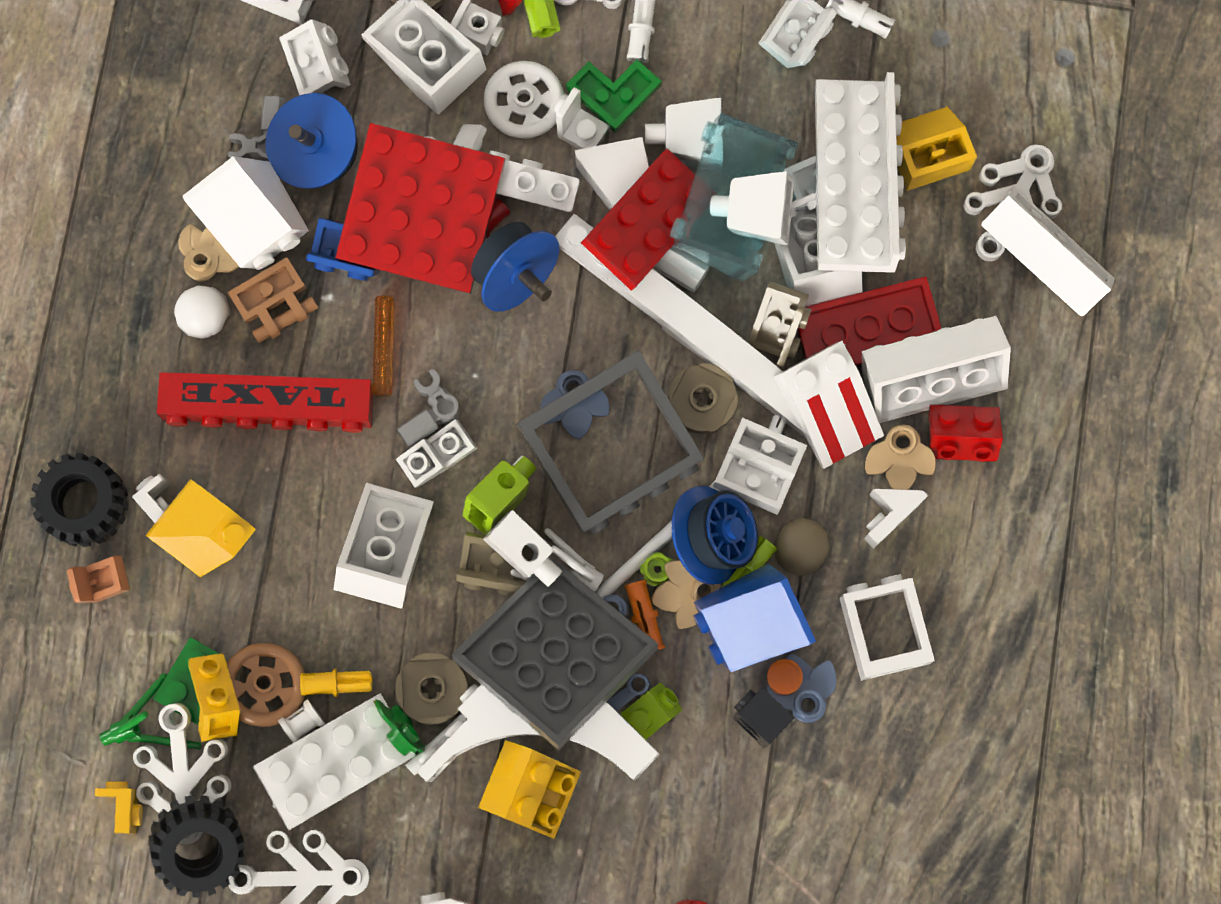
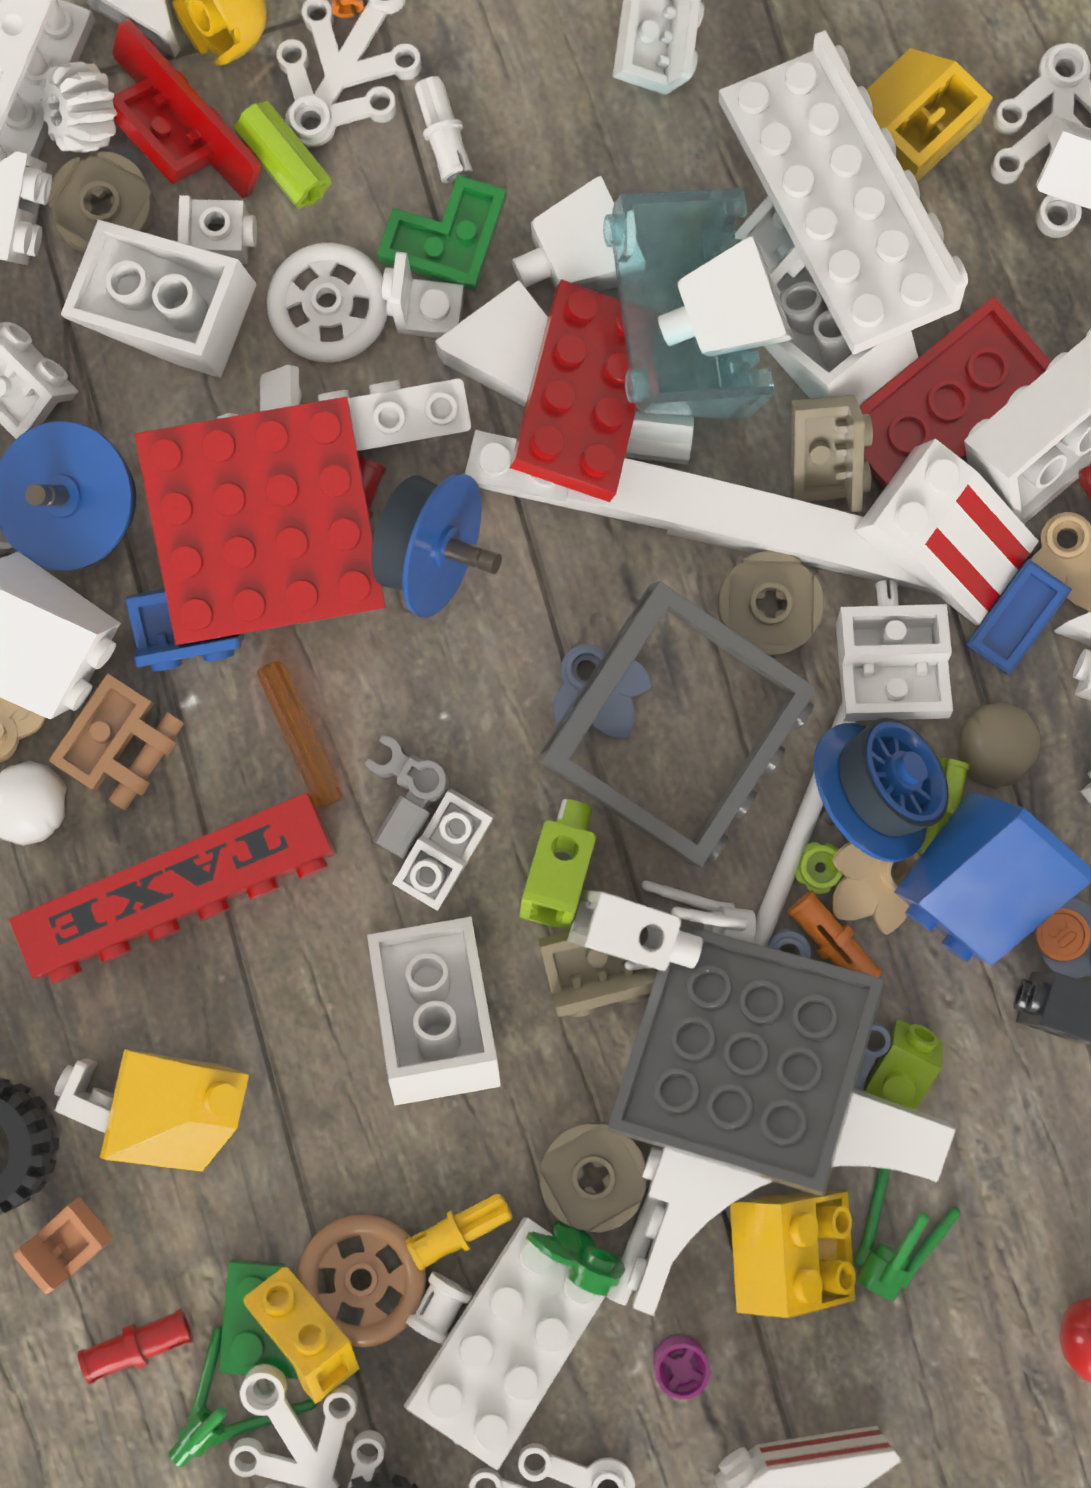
camera: 20 degrees left, 5 degrees up
(111, 660) = (135, 1346): none -> red pin
(425, 821) = (684, 1375): none -> magenta wheel
(580, 826) = (888, 1268): none -> green plant
(850, 475) = (1018, 617): none -> blue tile

